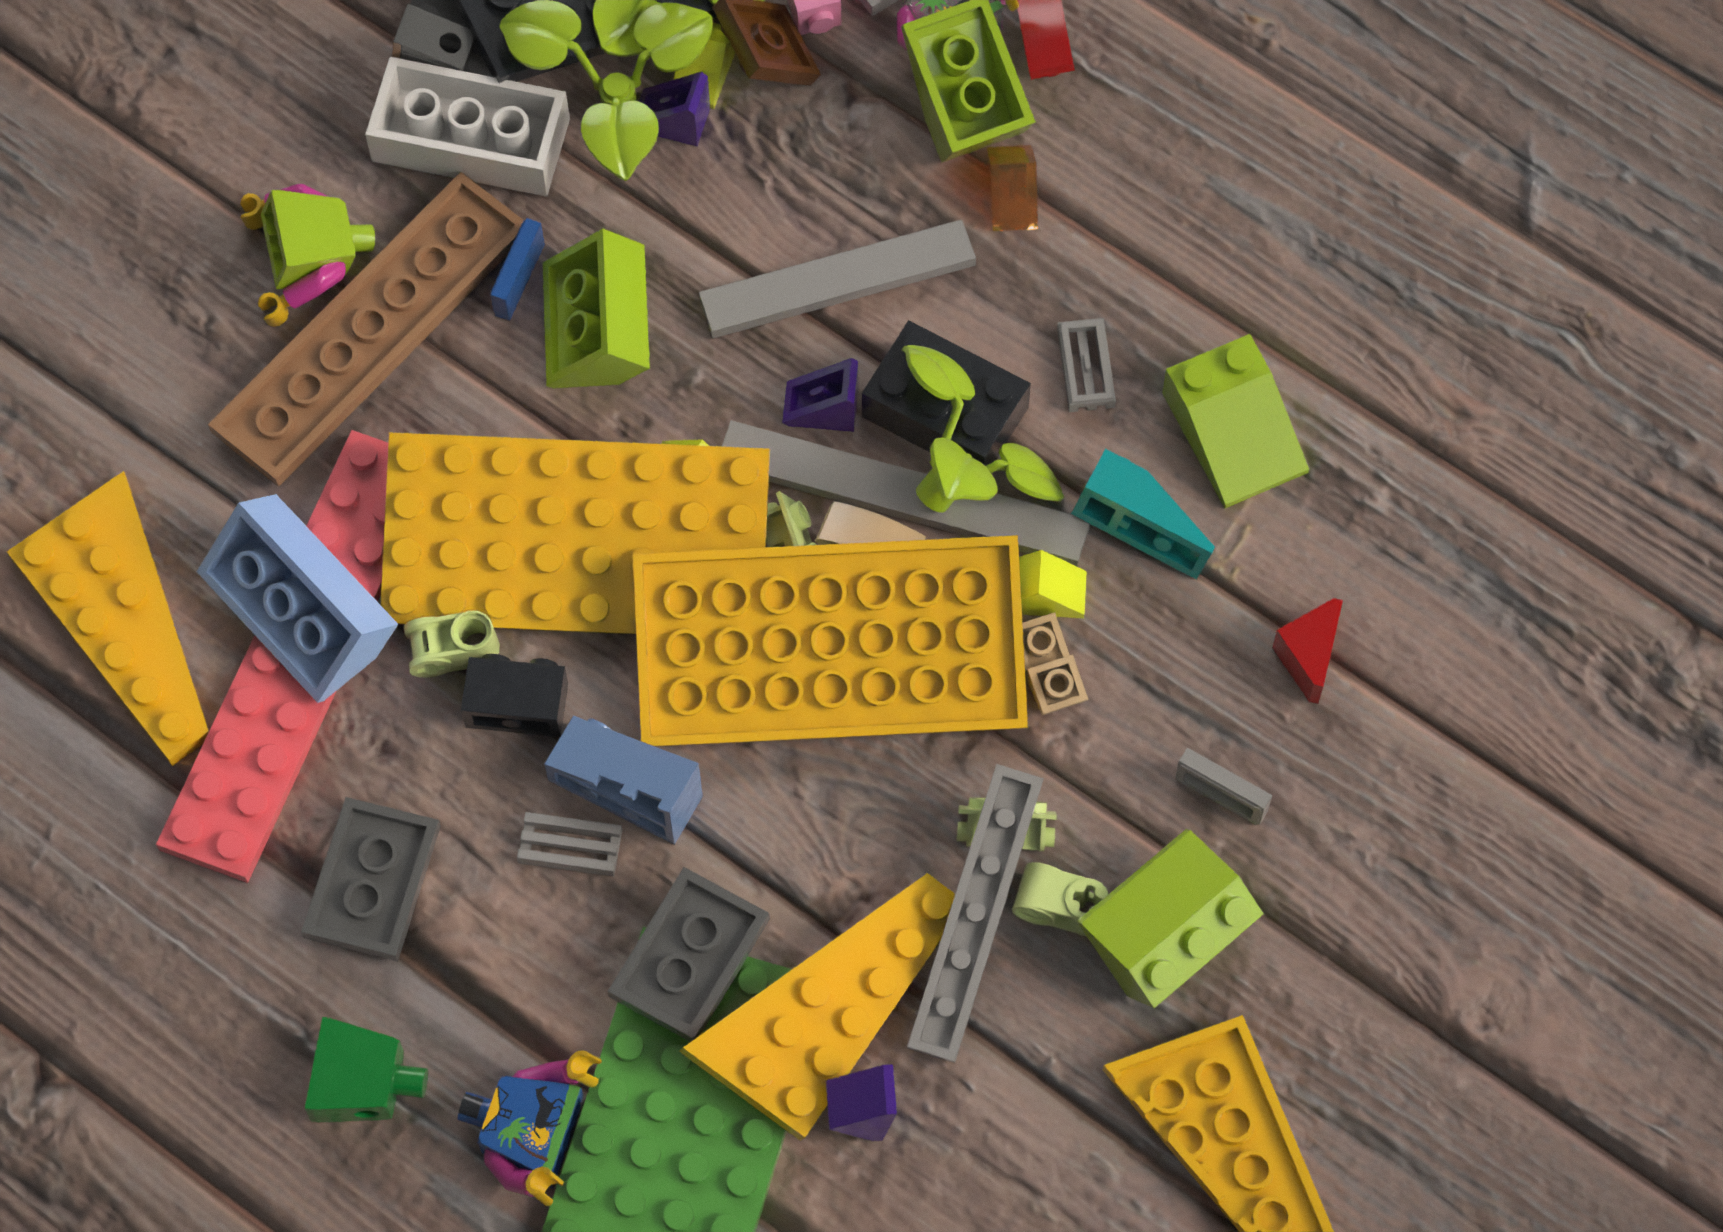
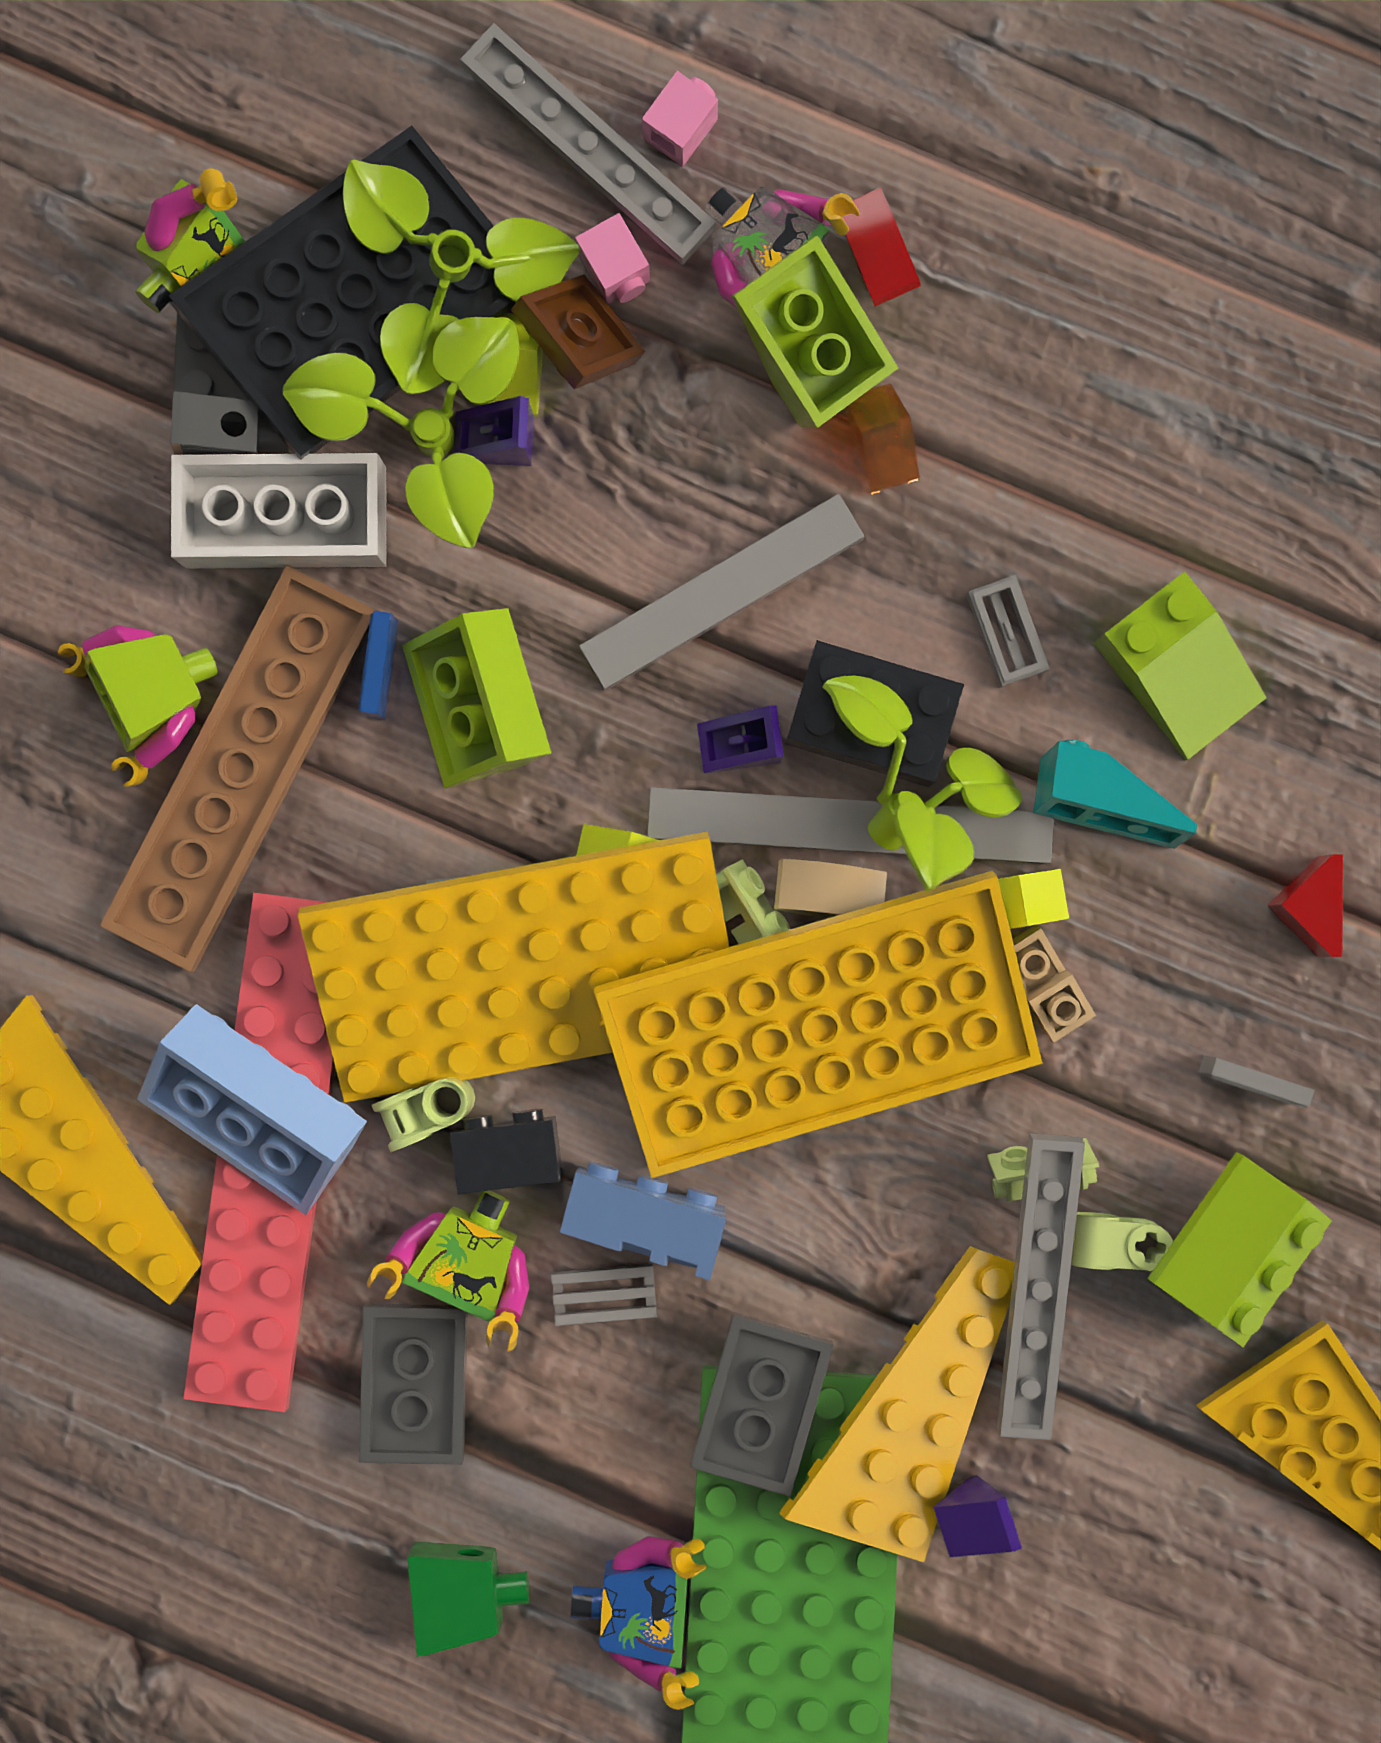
camera: 15 degrees left, 20 degrees up
(447, 777) = (464, 1263): none -> torso

